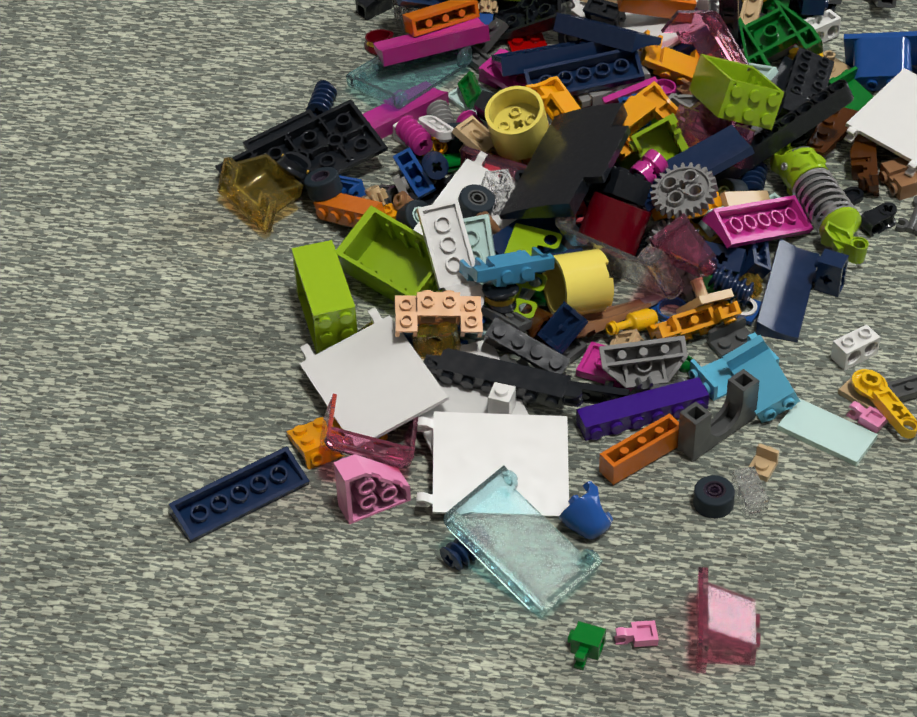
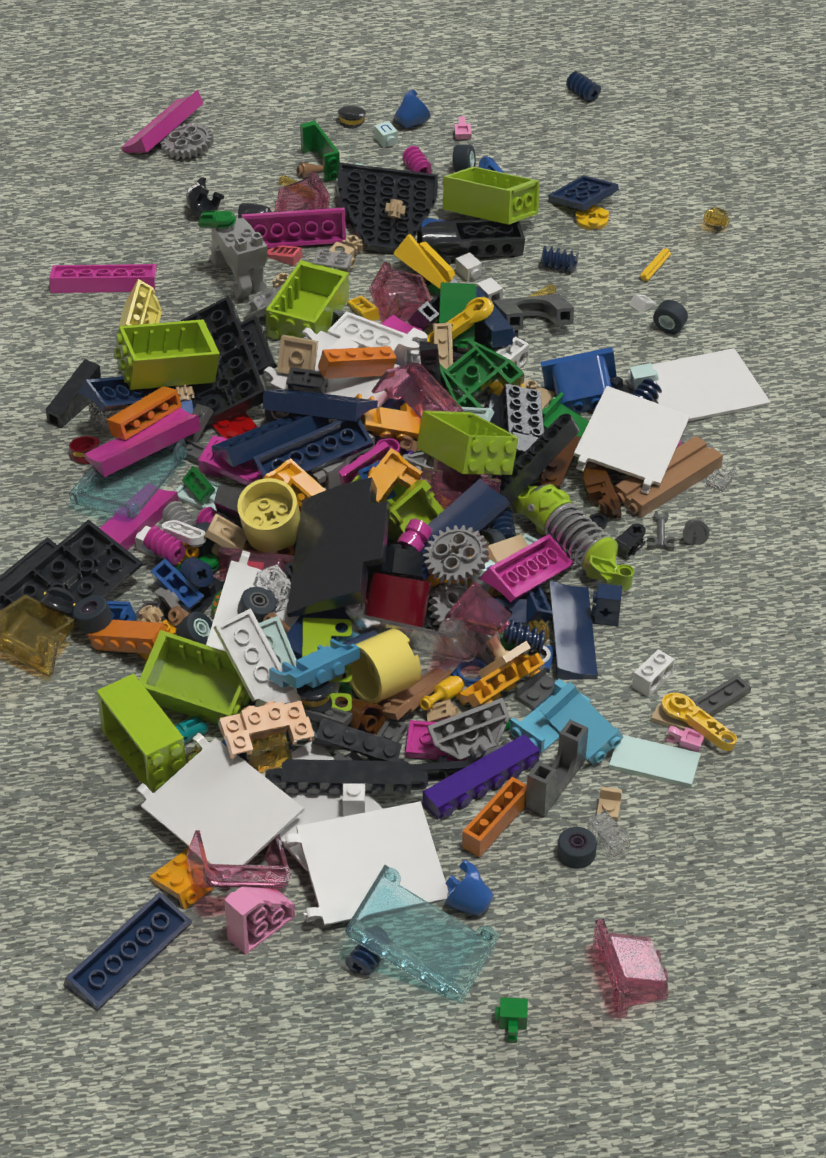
camera: 20 degrees left, 0 degrees up
(322, 97) = (51, 522): dark blue piece -> none
(381, 303) = (191, 727): none -> teal arm
(563, 327) = (383, 714): dark blue hinge -> none
(640, 632) = (558, 994): bright pink plate -> none

